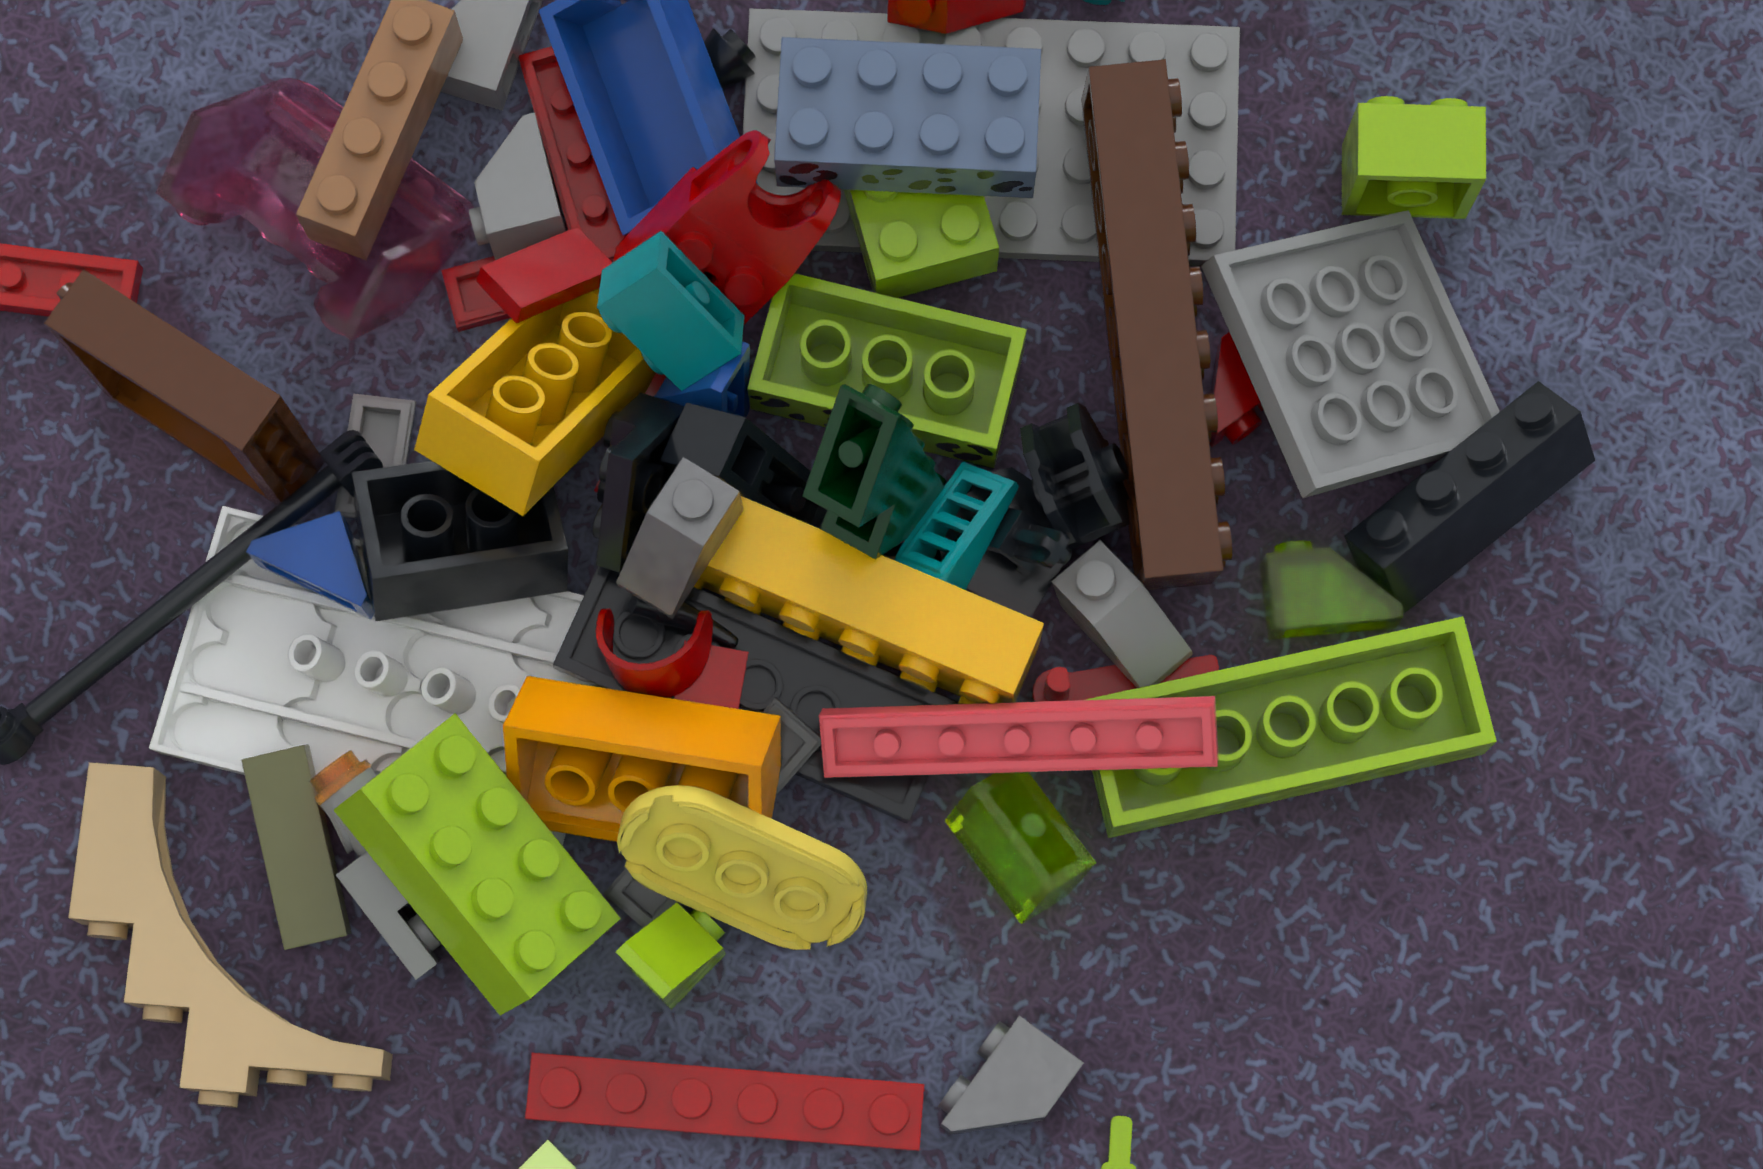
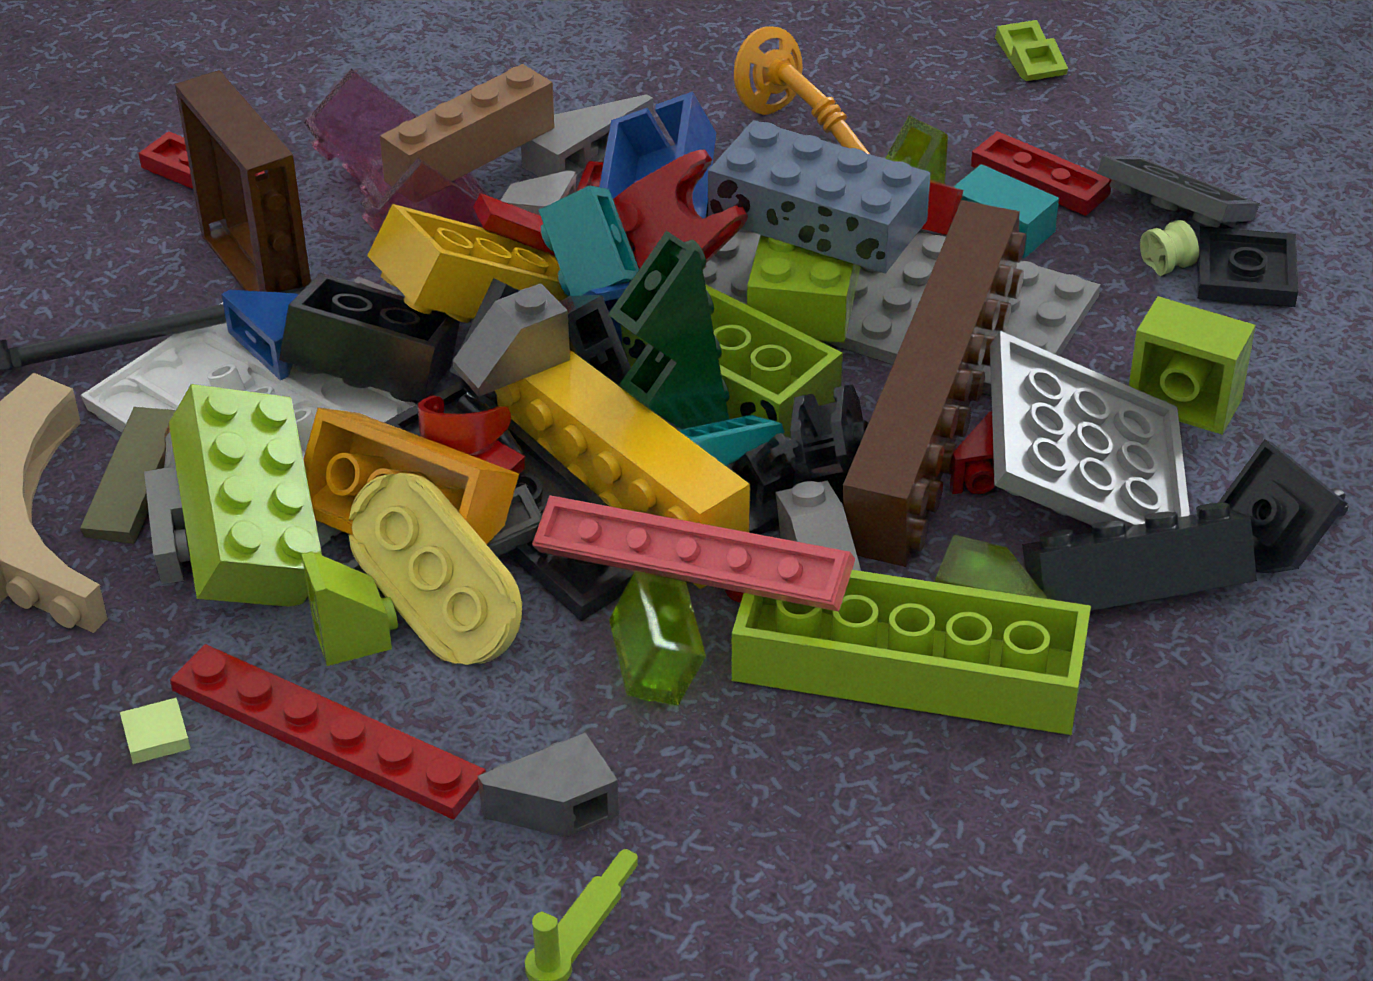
camera: 25 degrees right, 35 degrees down
(1592, 349) = (1286, 508): none -> black piece

